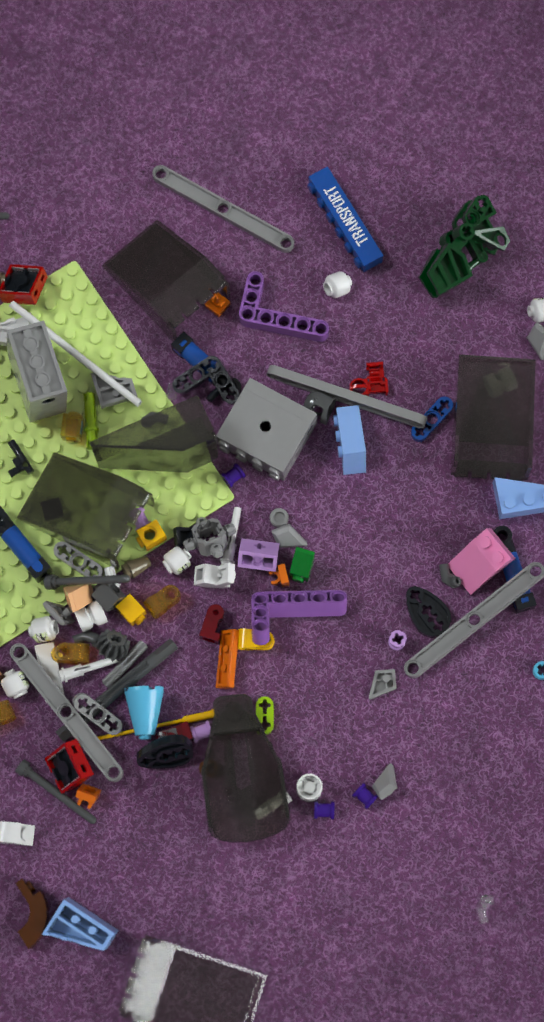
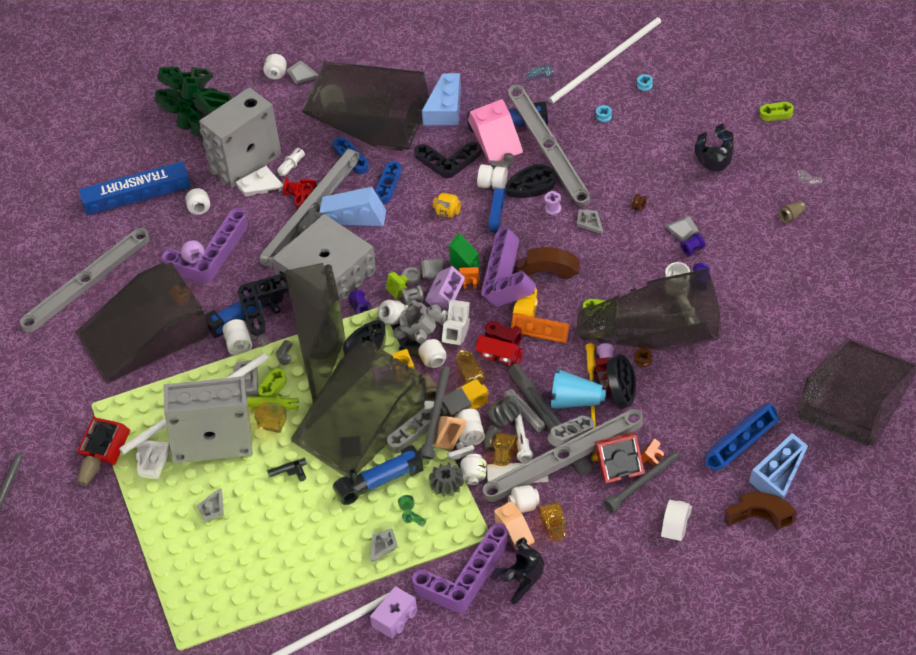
camera: 75 degrees left, 25 degrees down
(21, 613) = (446, 479): none -> dark grey gear
(116, 414) = (274, 386): none -> lime beam
(118, 883) = (741, 436): none -> blue brick
(168, 370) = (237, 337): none -> white wheel
(178, 483) = (365, 333): none -> black piece
(183, 625) = (495, 349): none -> red piece
(221, 509) = (390, 311): none -> white head
(250, 524) = (416, 292): none -> light grey bush
(254, 299) = (192, 251): none -> lavender piece
(260, 506) = (396, 284): none -> lime tile
(310, 651) = (549, 260): none -> reddish brown arch
(376, 532) = (447, 205): none -> yellow head
(378, 337) = (259, 182): none -> white wing
(383, 584) = (496, 209): none -> blue beam
(386, 460) = (387, 176): none -> blue beam
(408, 302) = (240, 137): none -> light grey gear
(409, 361) = (290, 162): none -> white axle
(415, 730) = (639, 202): none -> reddish brown bush
(420, 570) = (492, 177): none -> white wheel
(431, 895) = (791, 211): none -> dark tan cone
(440, 523) = (449, 163): none -> black beam
(489, 802) = (715, 157): none -> black piece

